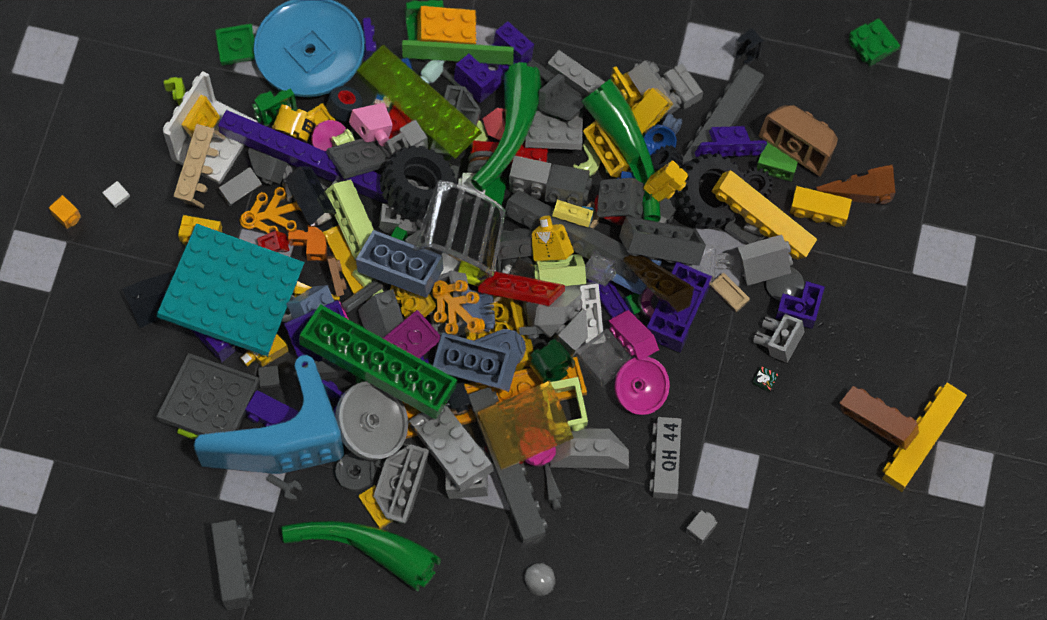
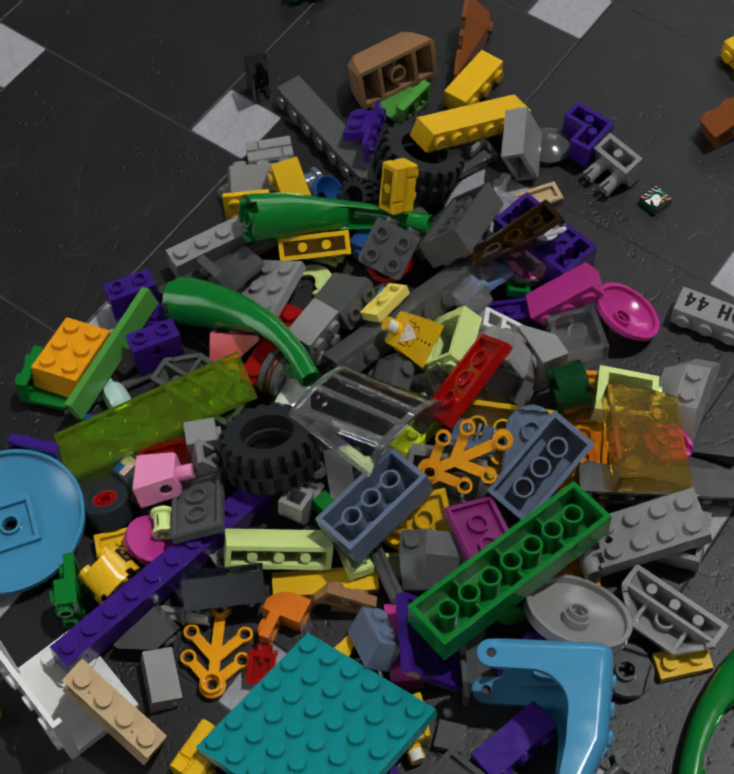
camera: 65 degrees left, 10 degrees down
(201, 113) = (46, 688): yellow tile -> none

